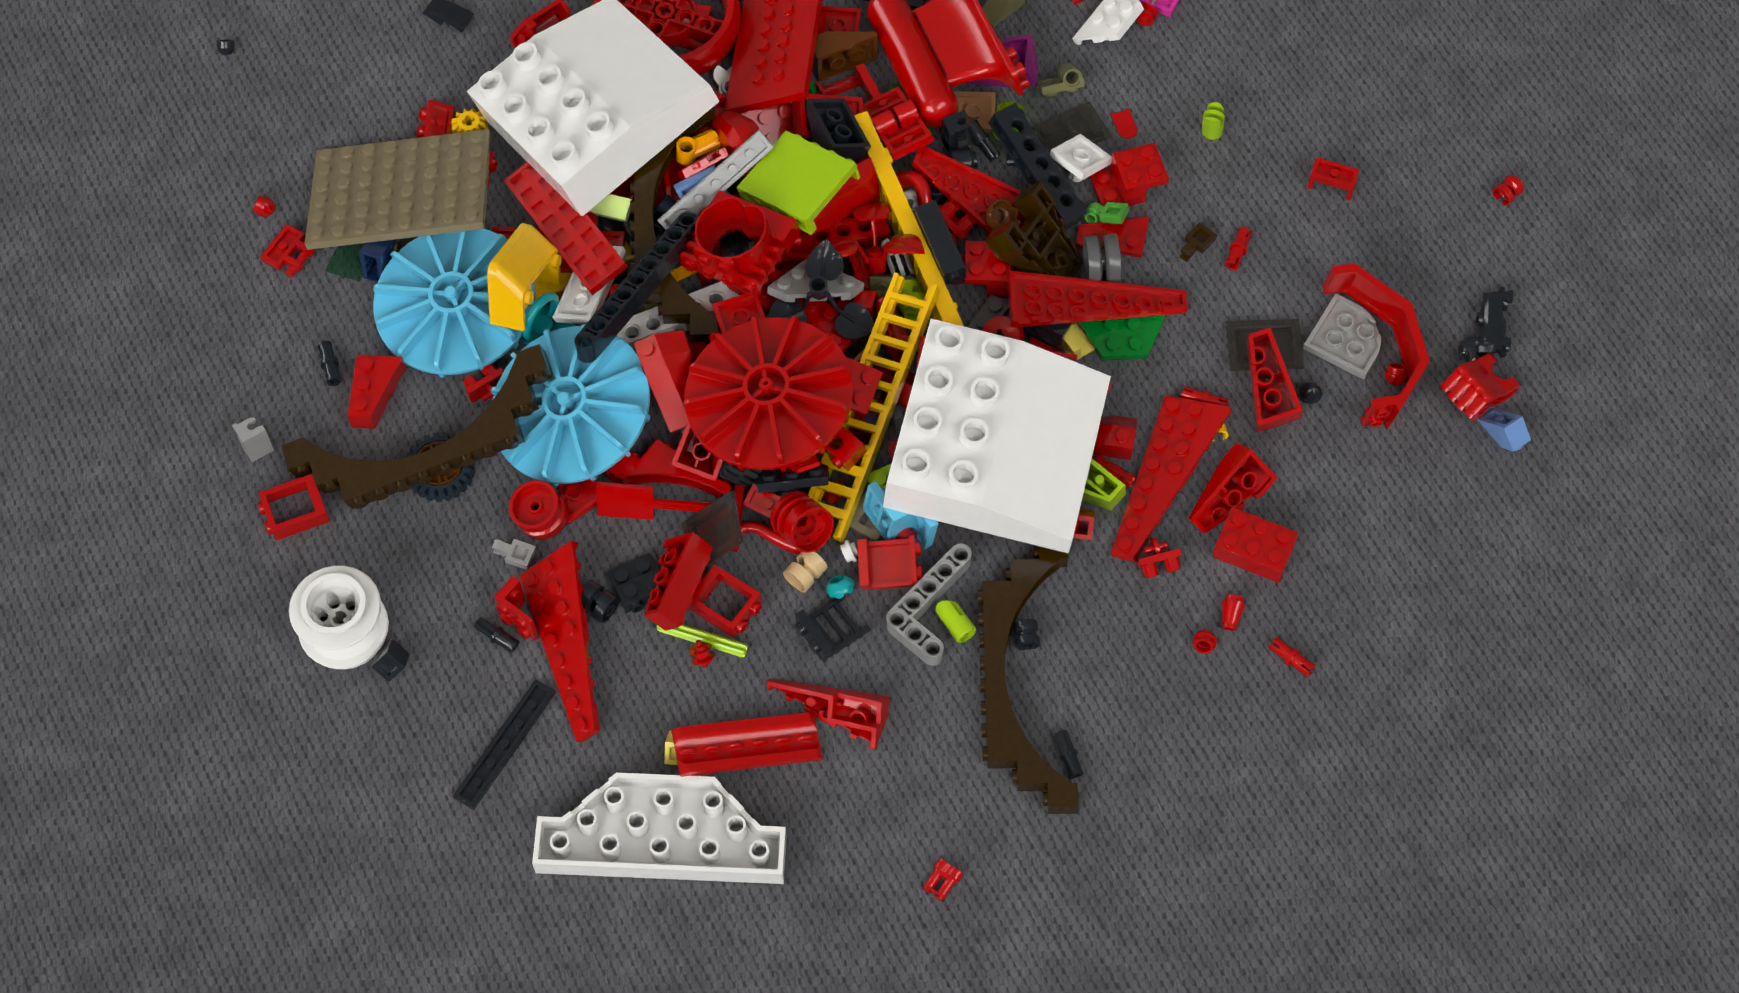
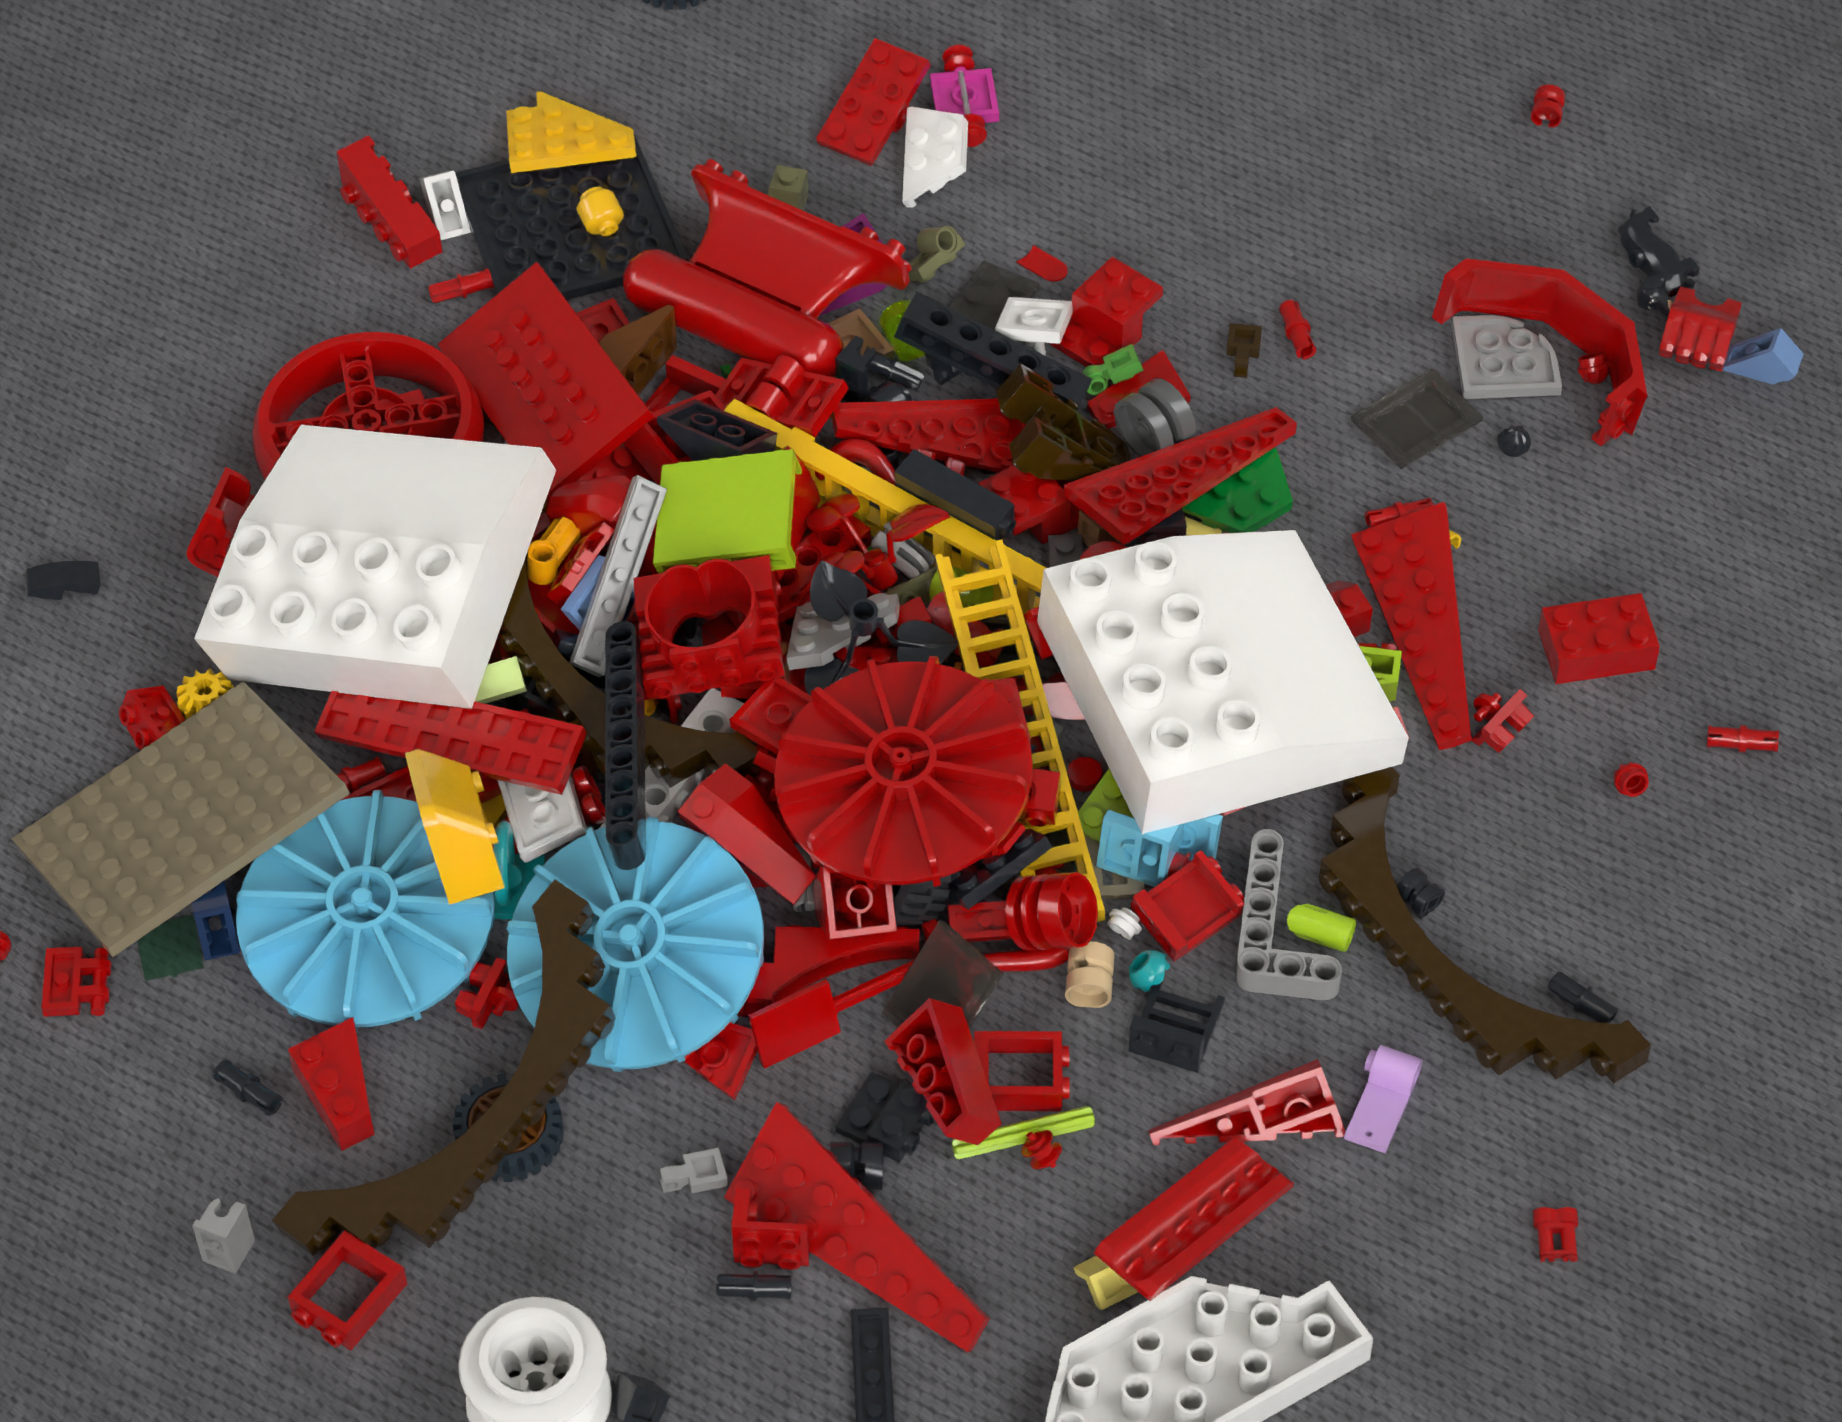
camera: 35 degrees left, 10 degrees down
(507, 218) = (362, 774): none -> red pin
(538, 510) = (690, 1099): red wheel -> none
(919, 737) = (1384, 1097): none -> lavender door
(1001, 212) = (994, 434): reddish brown hair -> none
(1213, 121) = (1154, 203): lime arm -> none
(1232, 611) = (1632, 727): red cone -> none
(1233, 482) = (1514, 578): red wedge -> none
(1271, 385) = (1466, 449): red wedge -> none
(1334, 175) = (1343, 189): red panel -> none

